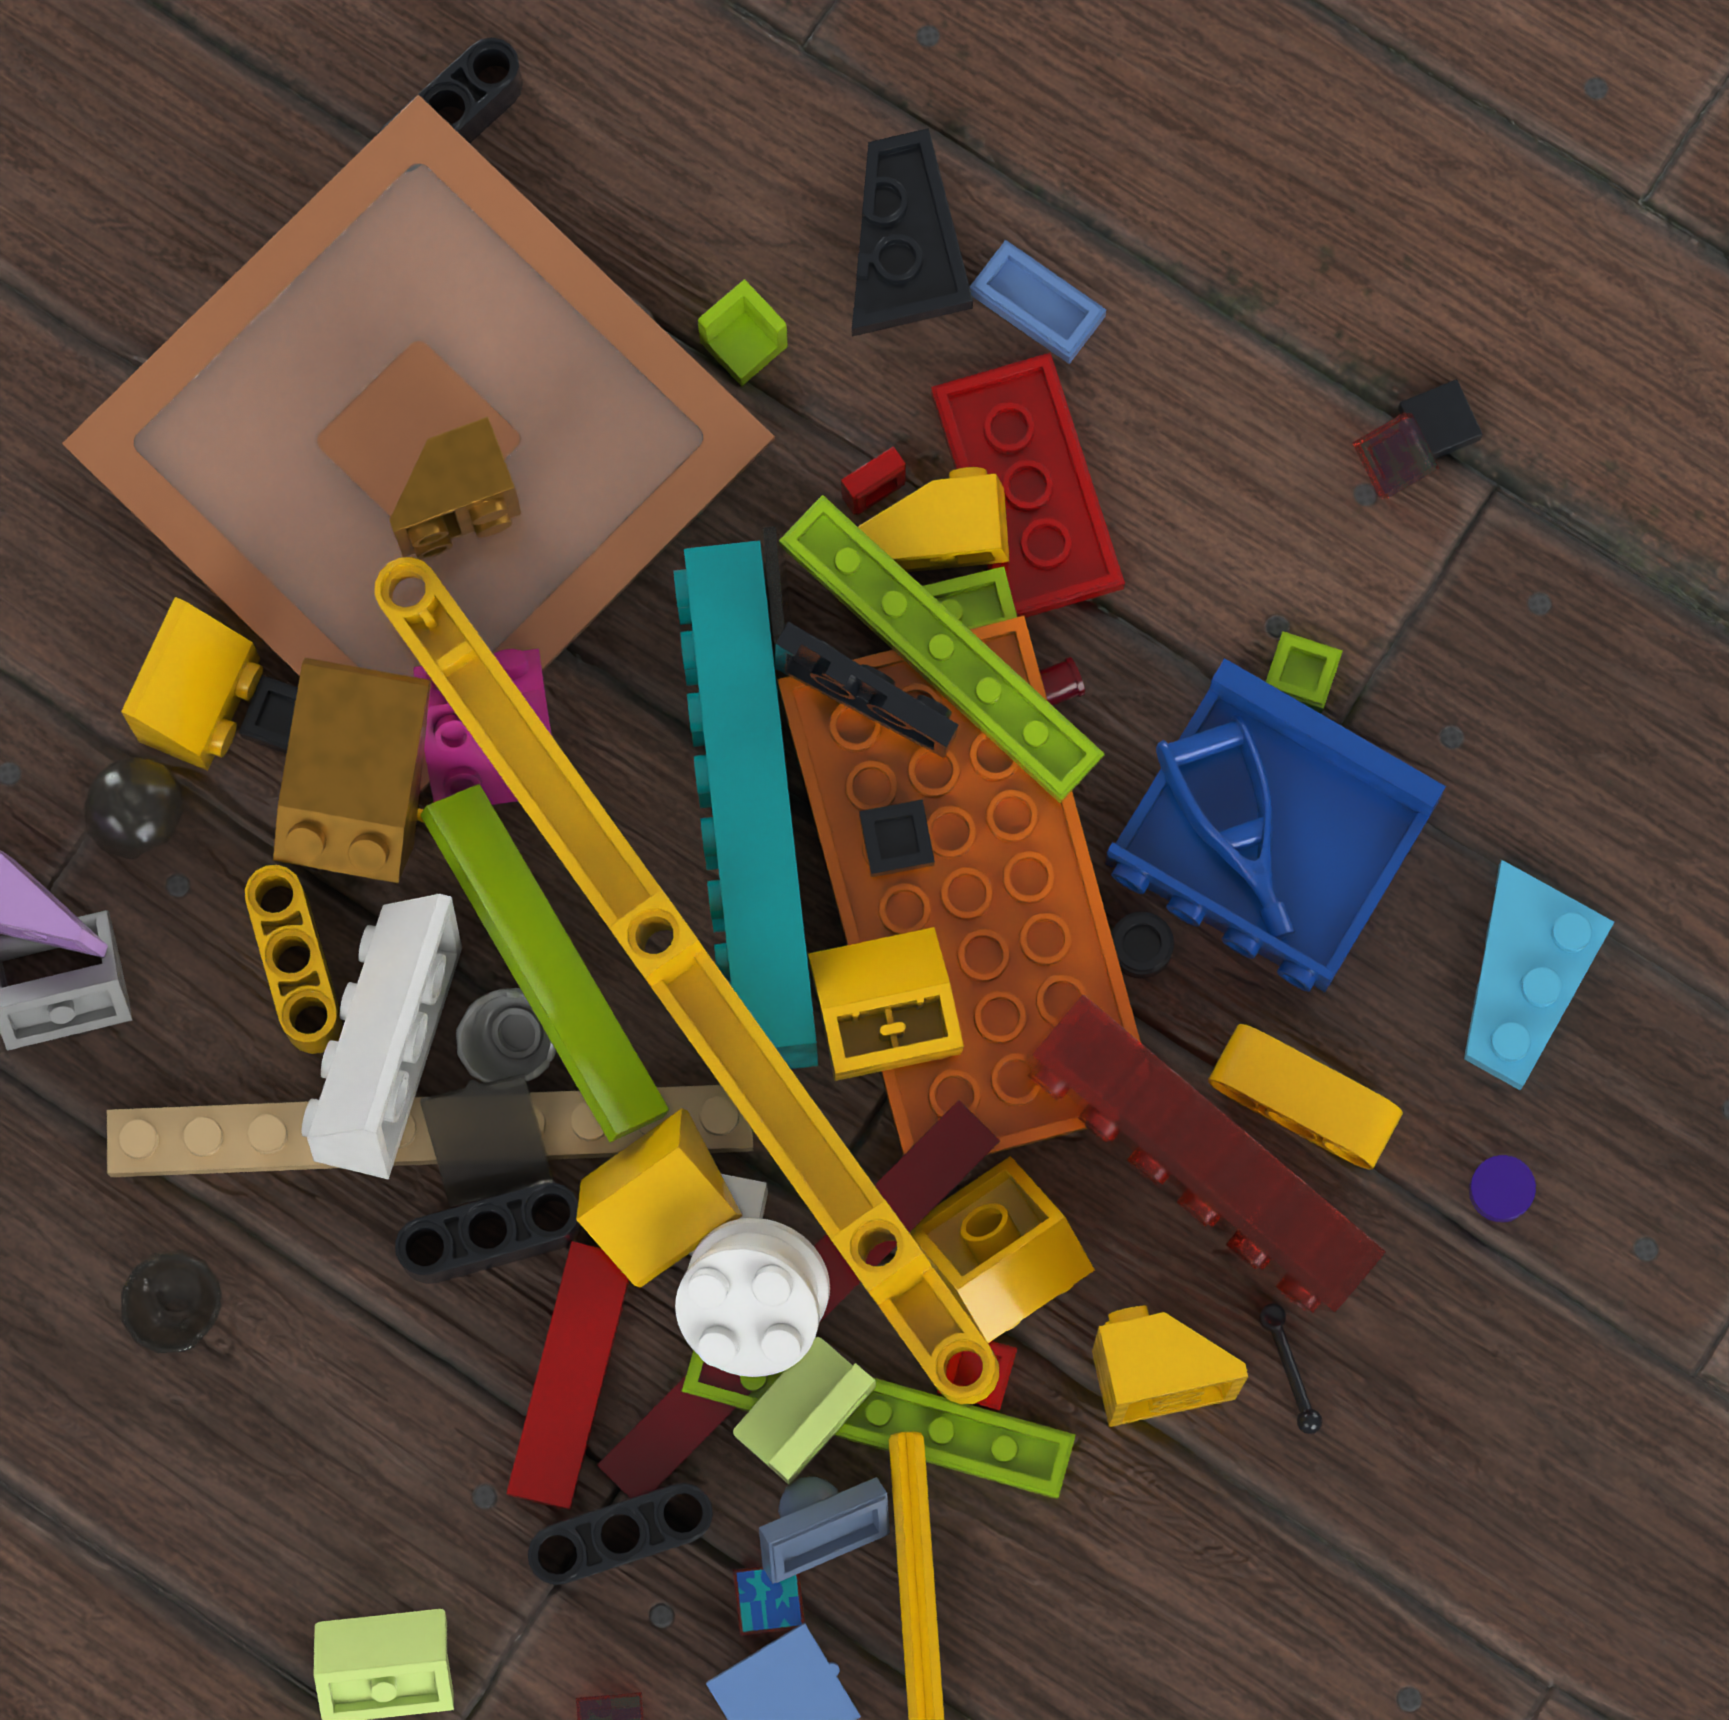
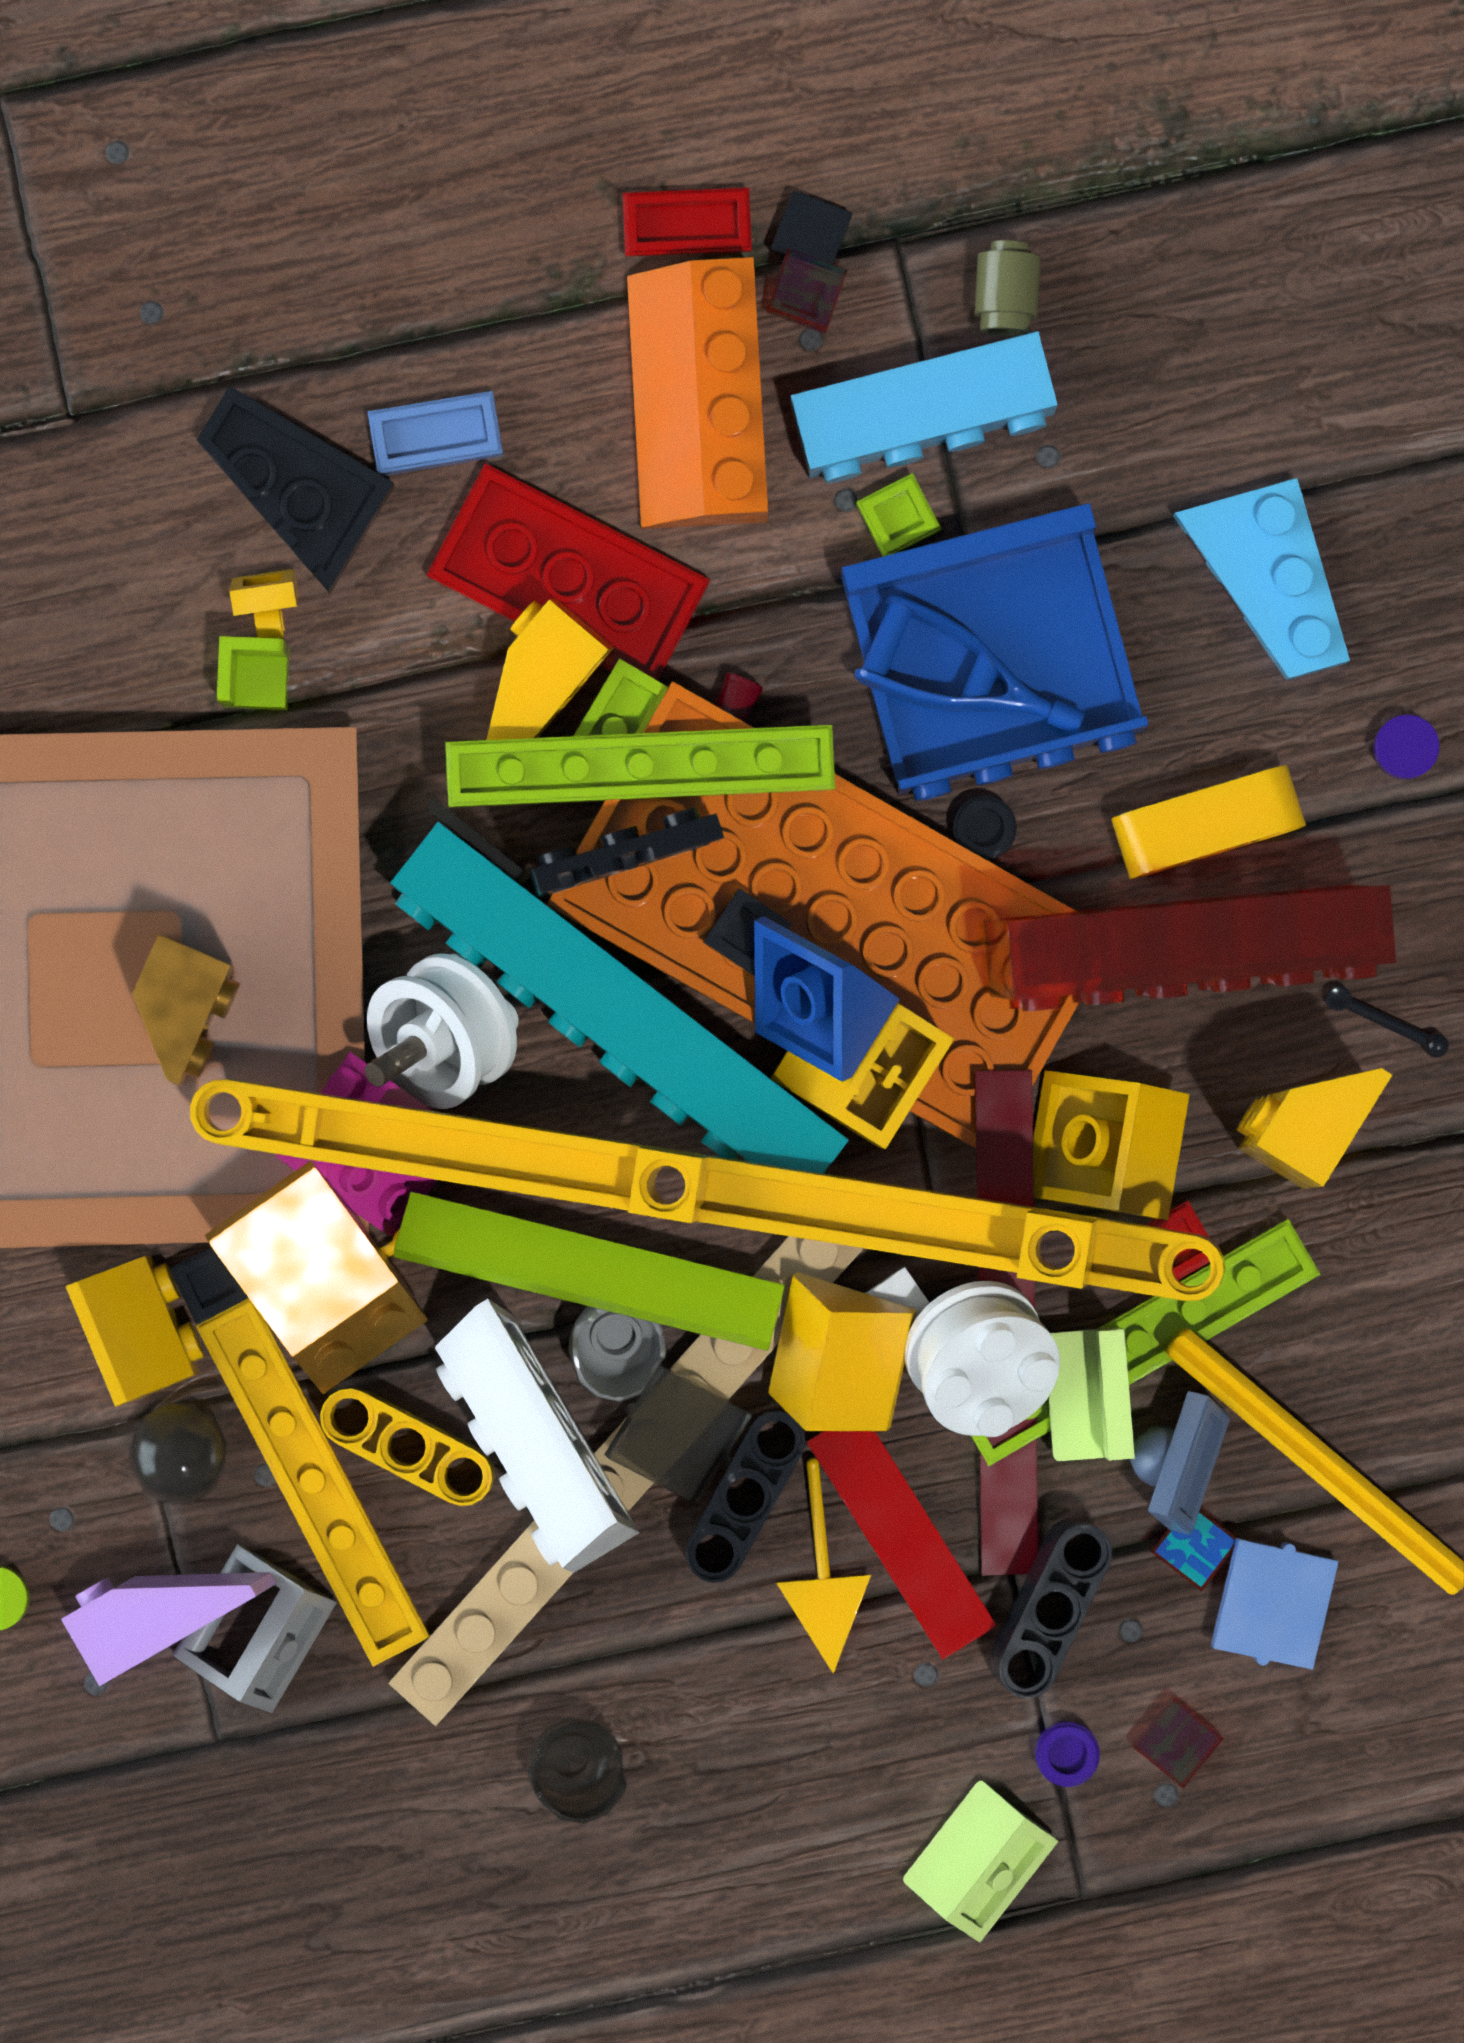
camera: 45 degrees left, 10 degrees up
(202, 925) = (313, 1481): none -> yellow tile
(466, 1371) = (824, 1604): none -> yellow piece
(525, 1654) = (1067, 1753): none -> dark purple tile
(613, 693) = (440, 1031): none -> white wheel
(802, 294) = (265, 597): none -> yellow tile
(873, 481) = (458, 686): red tile -> none
(894, 924) = (815, 1001): none -> blue slope
(1248, 451) = (698, 394): none -> orange slope
(1360, 329) = (687, 222): none -> red tile
(1396, 611) = (924, 406): none -> medium azure brick
(1538, 590) = (1007, 289): none -> olive brick

